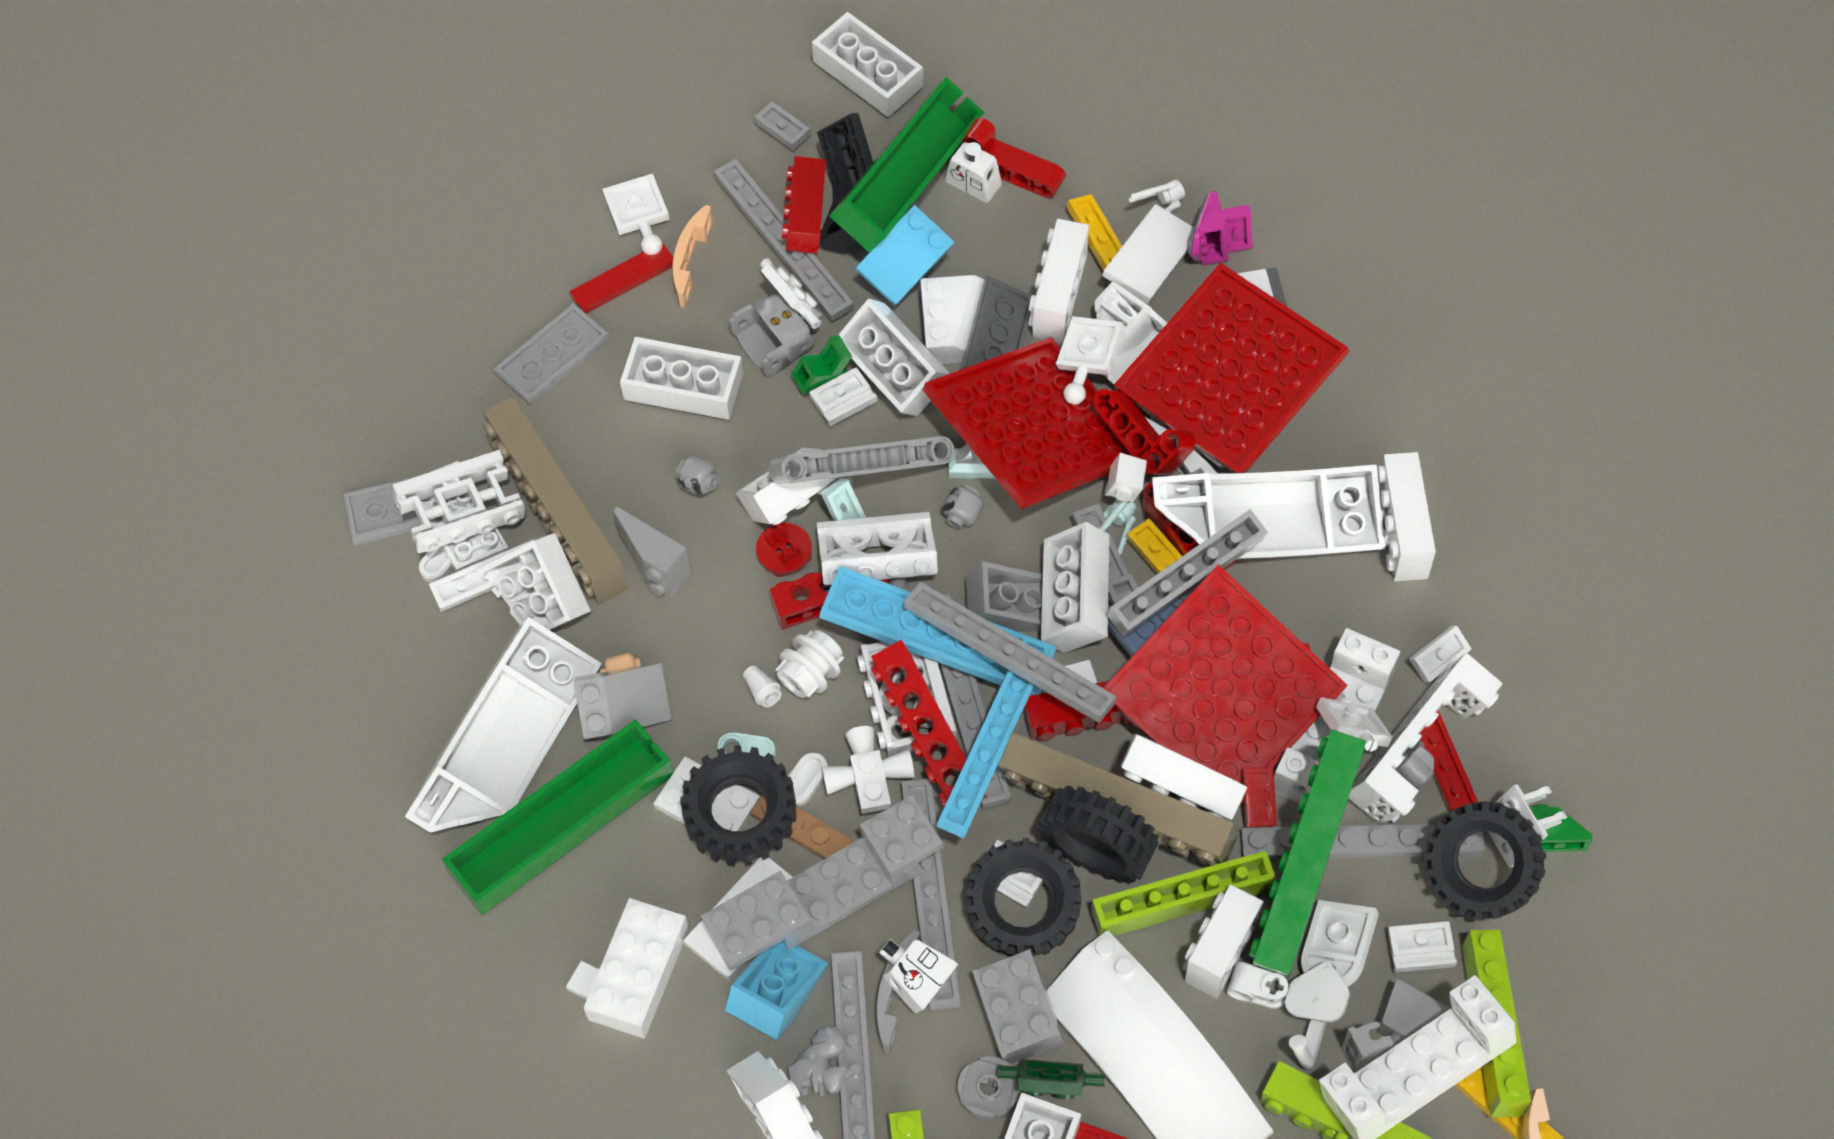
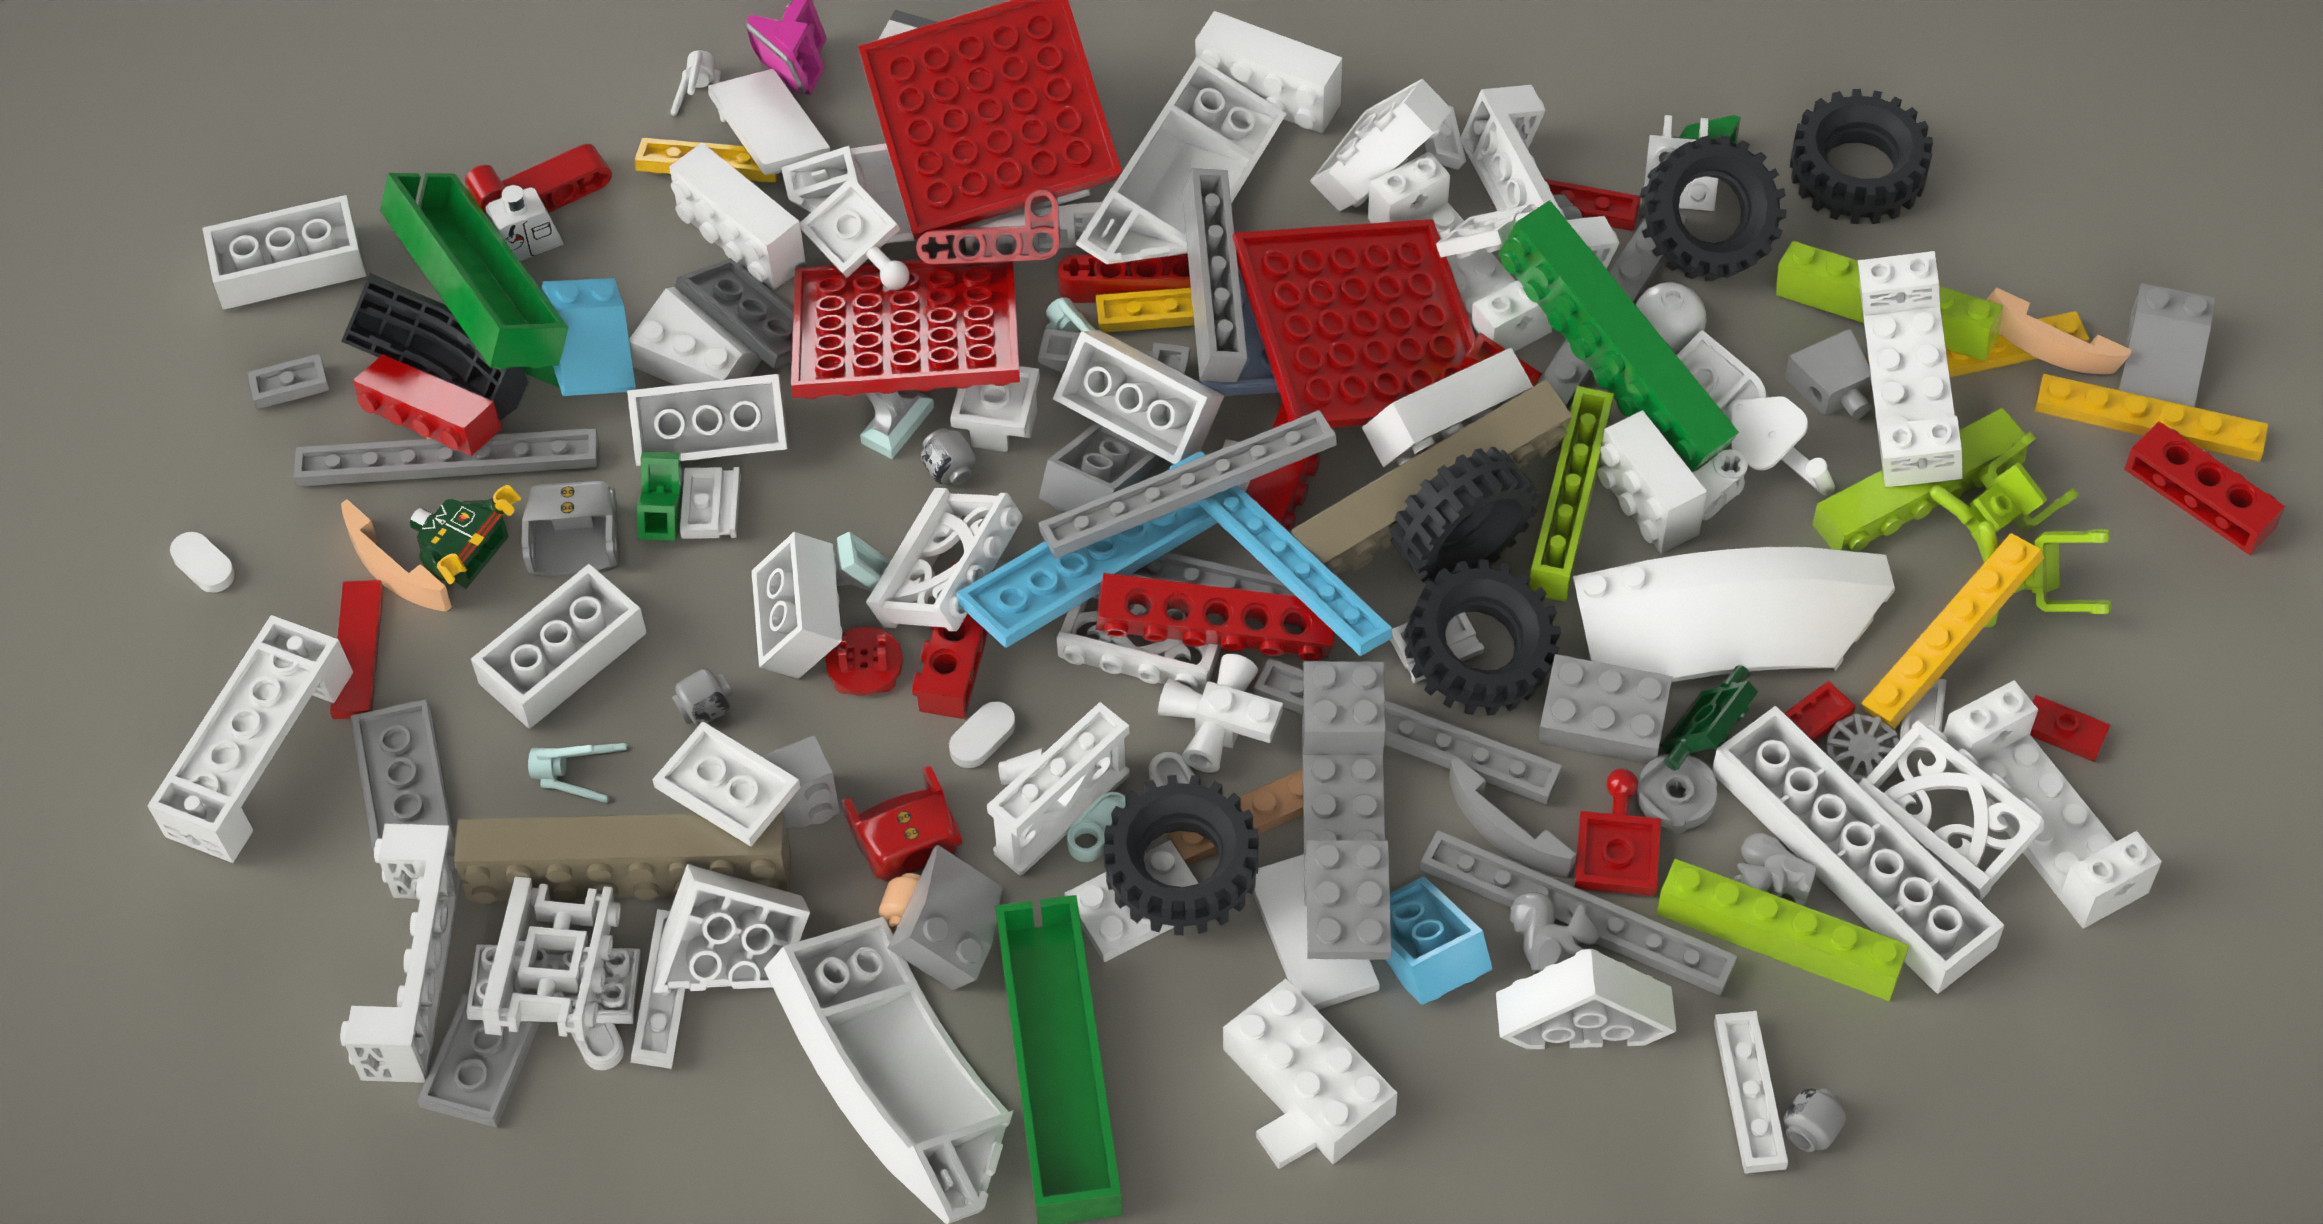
camera: 60 degrees left, 5 degrees down
(422, 441) = (398, 1040): none -> white plate
(515, 254) = (241, 734): none -> white plate
(604, 425) = (552, 762): none -> light aqua plant
(616, 519) = (726, 783): none -> white plate
(631, 161) = (202, 562): none -> white tile
(637, 206) = (273, 583): white plate -> none
(673, 639) = (904, 829): none -> red piece
(726, 281) = (463, 535): none -> dark green torso
(741, 707) = (1059, 788): none -> white fence
(768, 644) = (982, 734): none -> white tile
(790, 289) = (524, 476): white plate -> none
(805, 668) = (1044, 697): white piece -> none
(861, 460) = (832, 507): light grey gear -> none
(916, 971) = (1511, 778): white torso -> none
(919, 1072) = (1618, 849): none -> red plate
(1012, 521) = (997, 411): none -> white panel
(1126, 477) = (1043, 280): white brick -> none
(1361, 1049) = (1849, 423): light grey hinge -> none
(1385, 885) = (1674, 313): none -> white cylinder
(1386, 617) = (1380, 143): none -> white brick
(1421, 946) = (1758, 324): white plate -> none
(1640, 908) = (1866, 122): none -> black tyre

